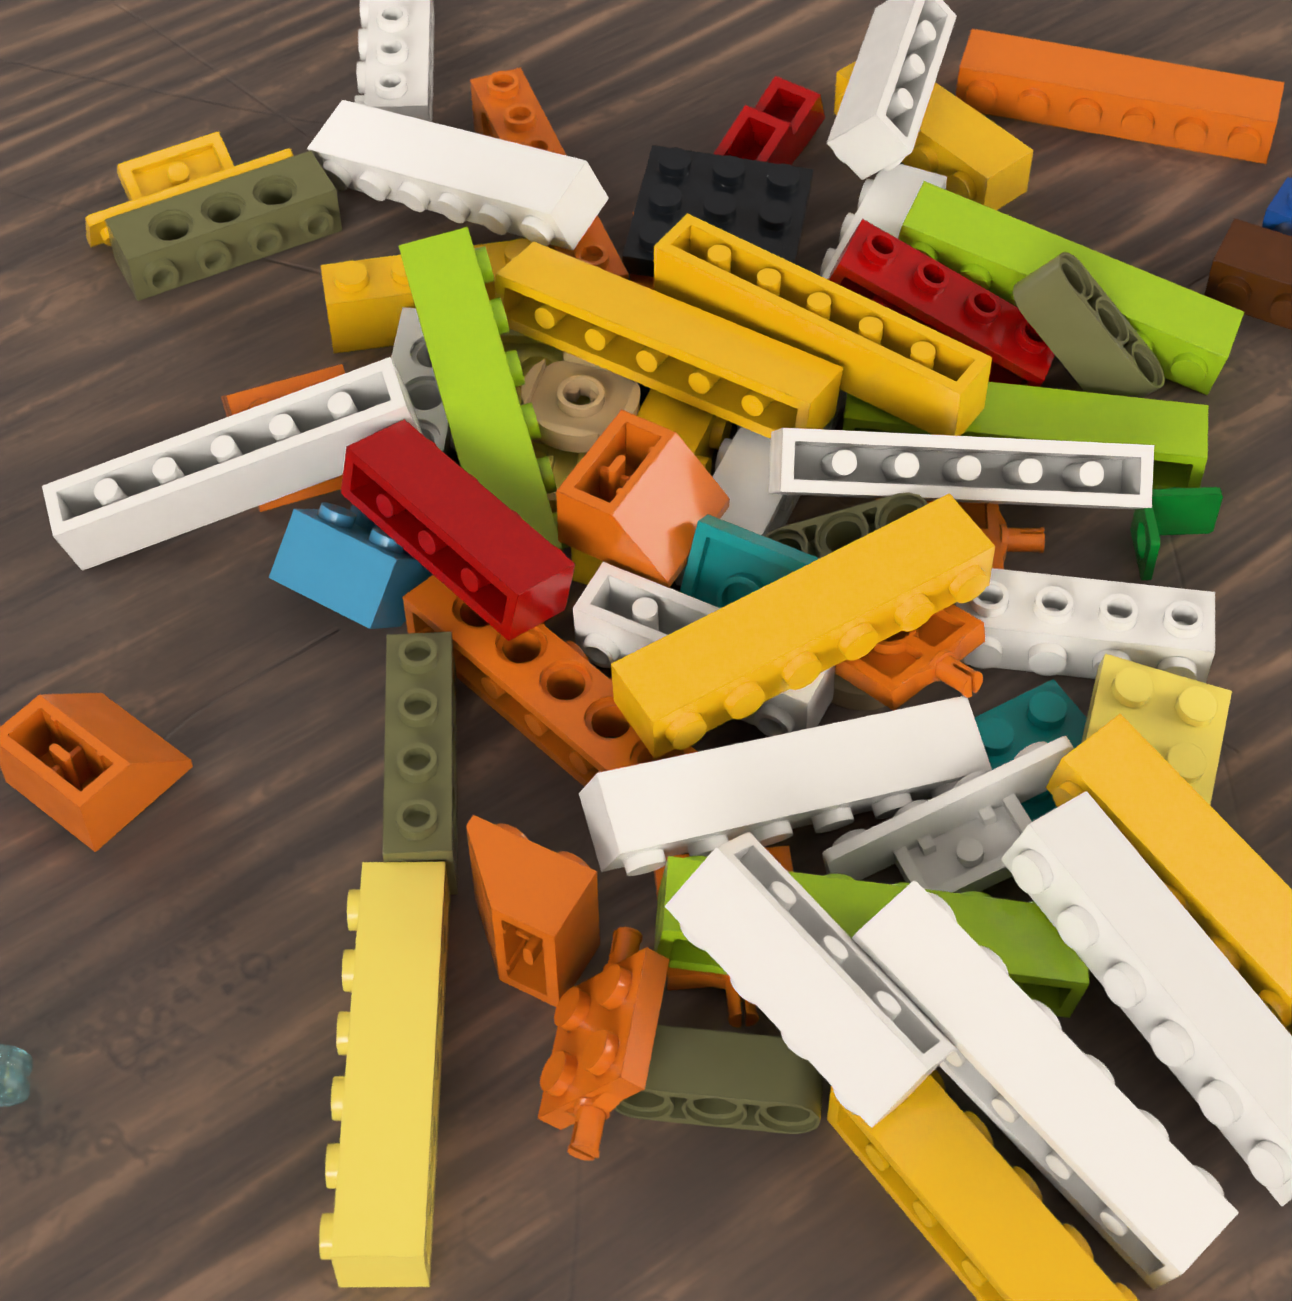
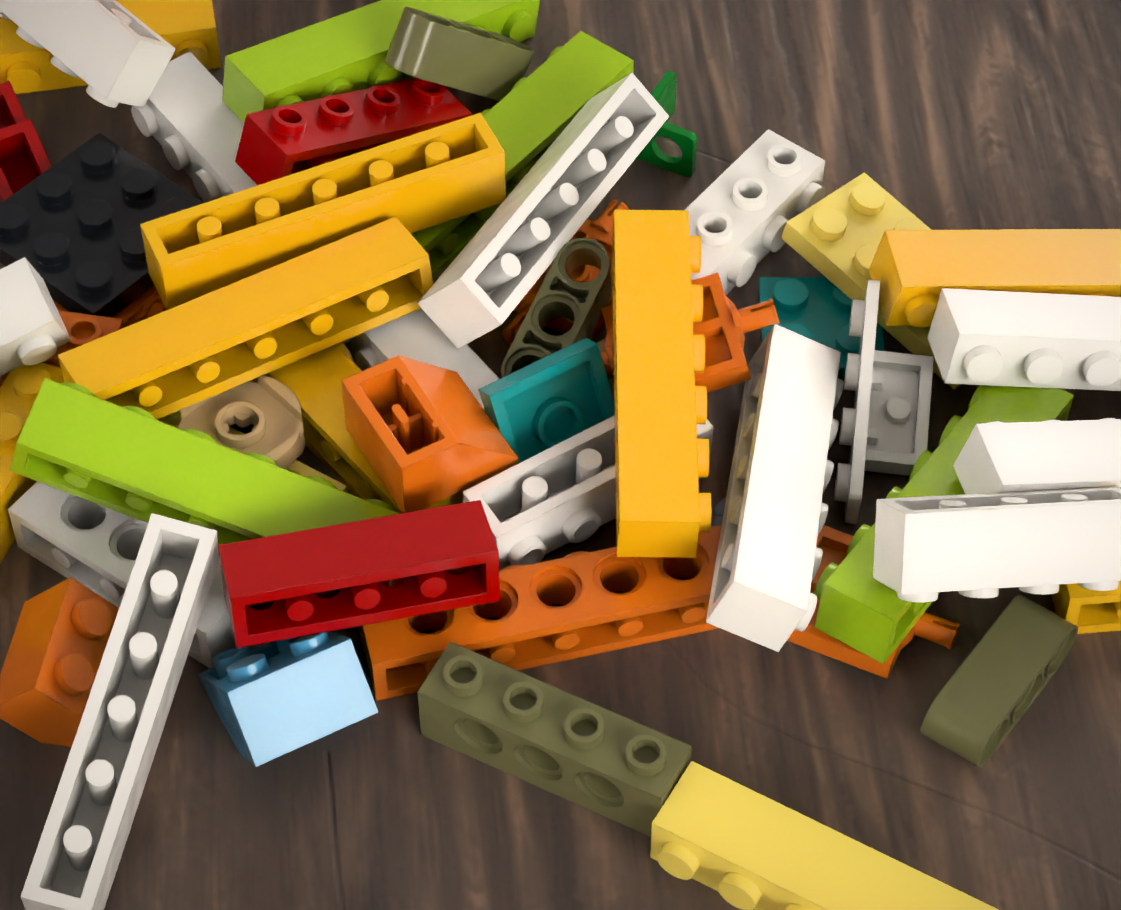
camera: 60 degrees left, 0 degrees up
(533, 909) = (781, 721): orange slope -> none
(603, 1042) = (937, 729): orange plate -> none

